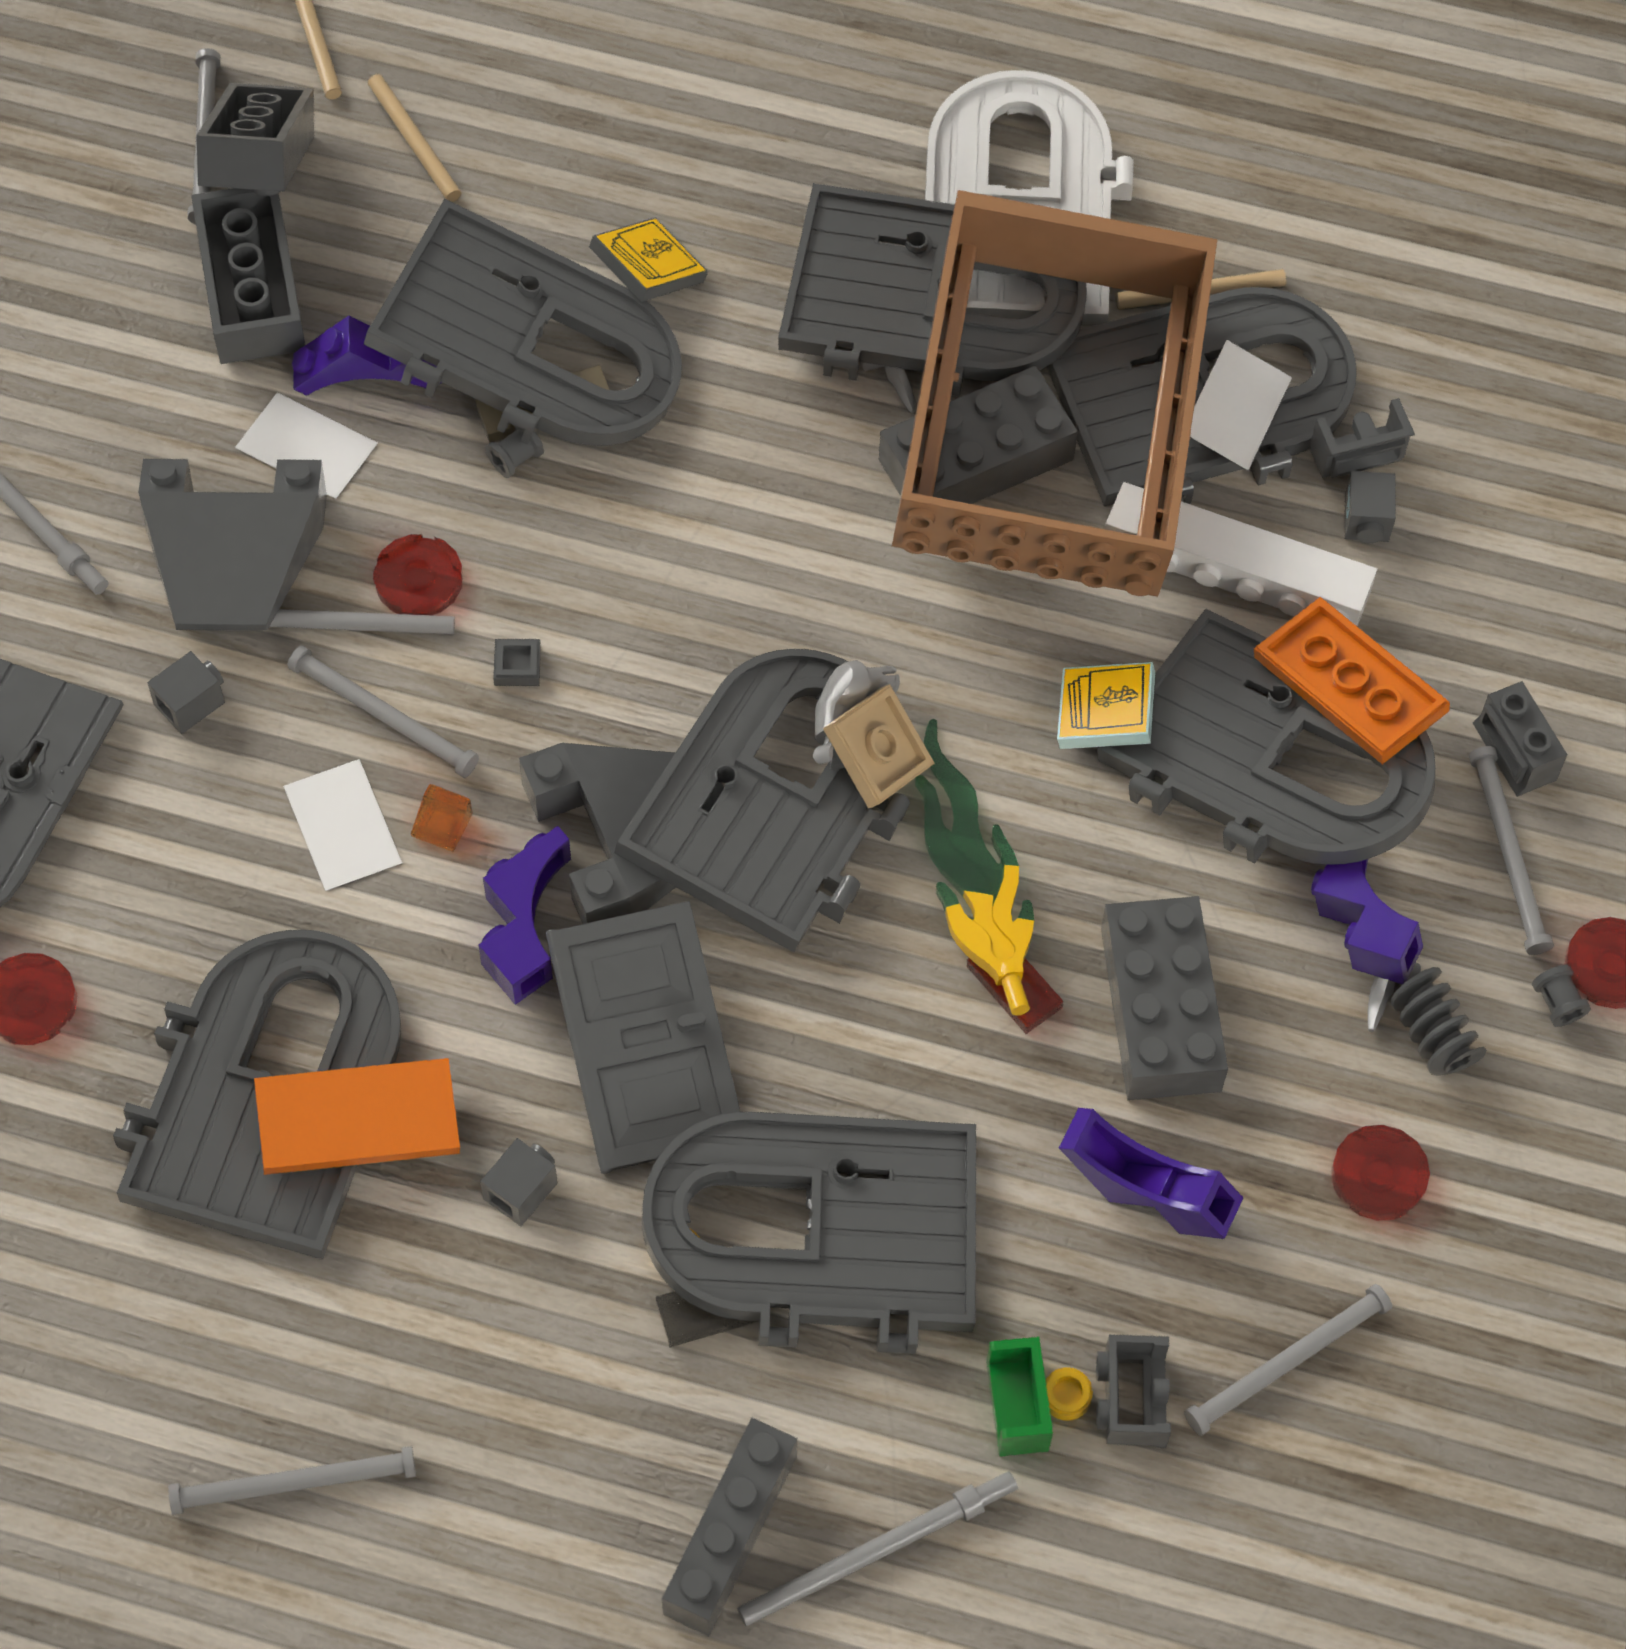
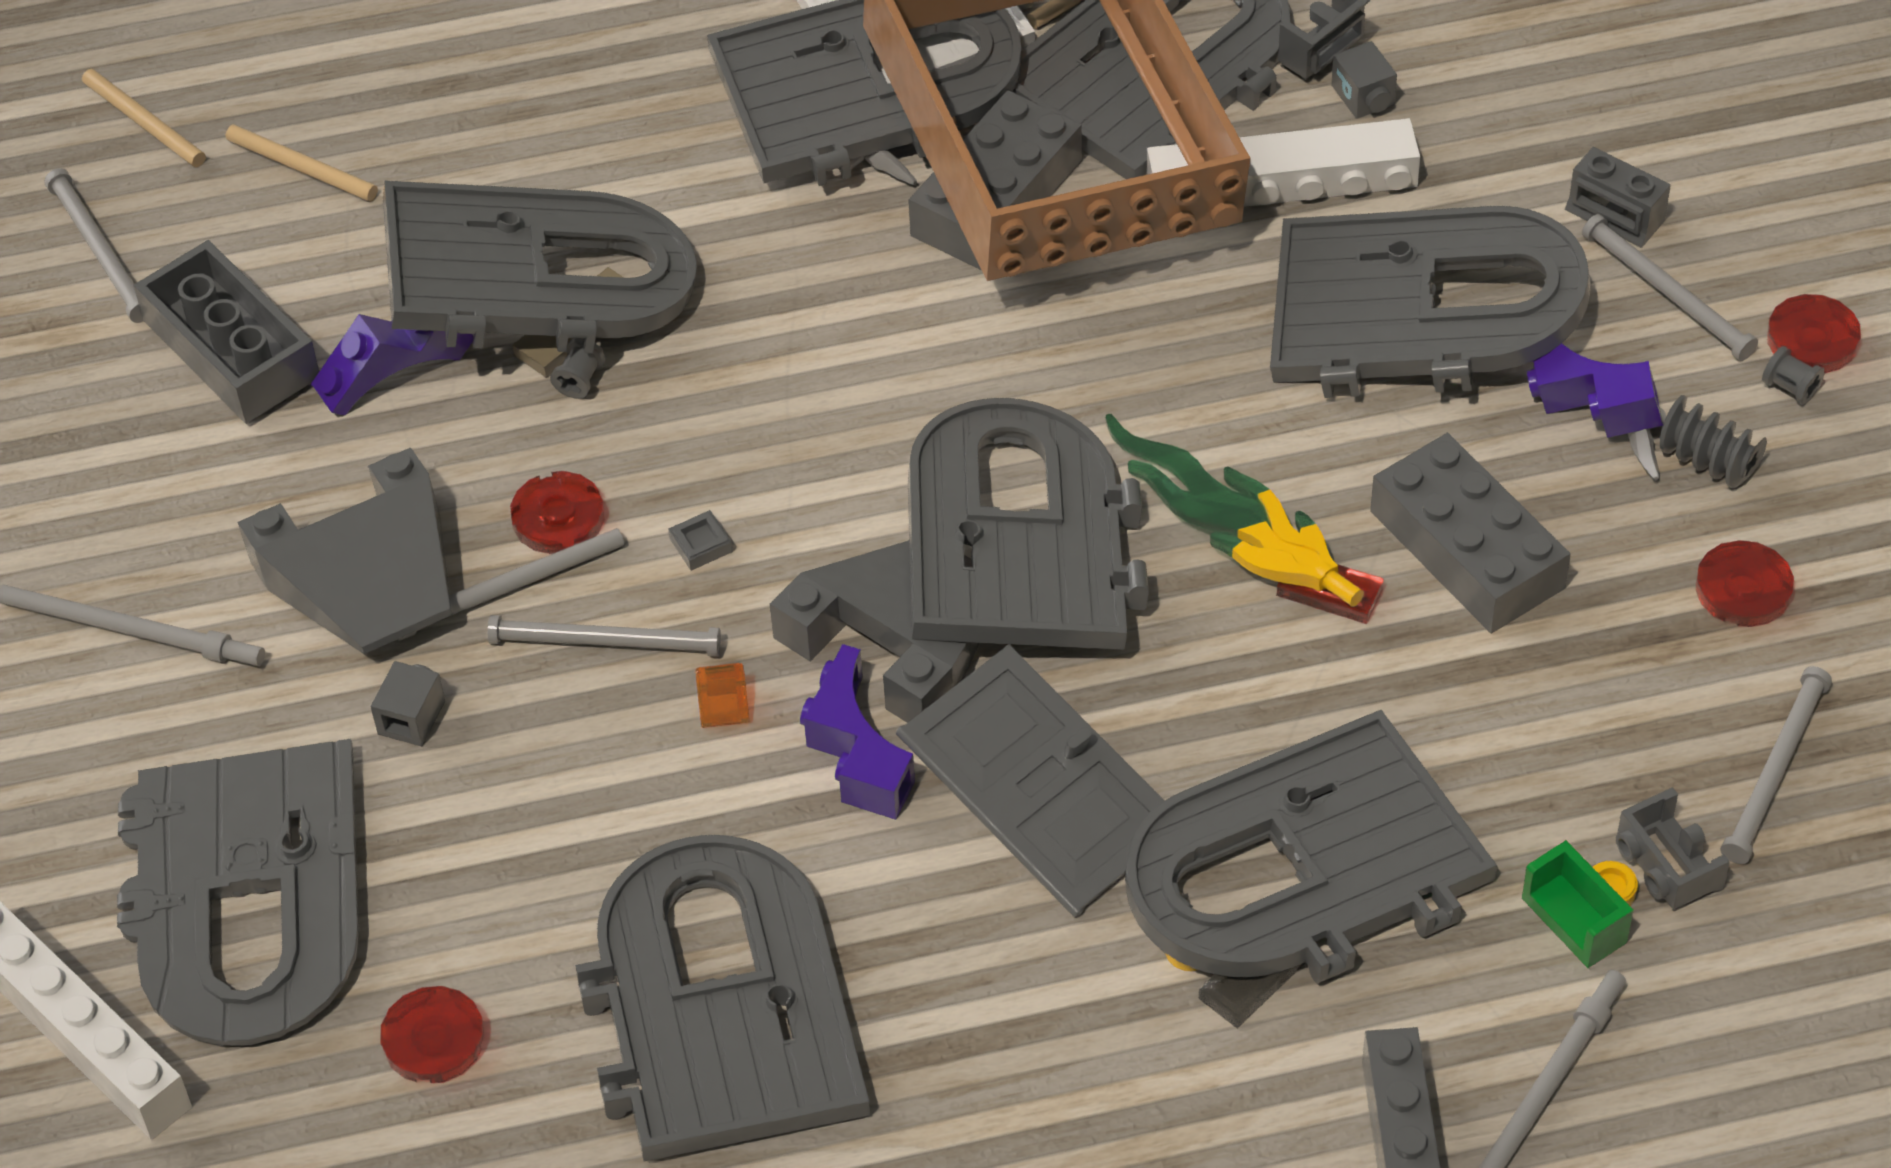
camera: 25 degrees left, 10 degrees down
(255, 137) = (167, 210): dark grey brick -> none
(299, 433) = (345, 450): white sticker -> none
(342, 824) = (629, 749): white sticker -> none
(356, 1116) = (824, 971): orange tile -> none
(520, 1181) = (1010, 955): dark grey brick -> none
(648, 259) = (594, 163): tile -> none
(843, 690) = (1026, 432): light grey arm -> none
(878, 746) = (1086, 445): tan tile -> none
(1106, 705) = (1255, 329): yellow tile -> none
(1126, 1172) = (1540, 680): dark purple arch -> none
(1238, 404) = (1211, 43): white sticker -> none
(1351, 680) = (1454, 207): orange tile -> none

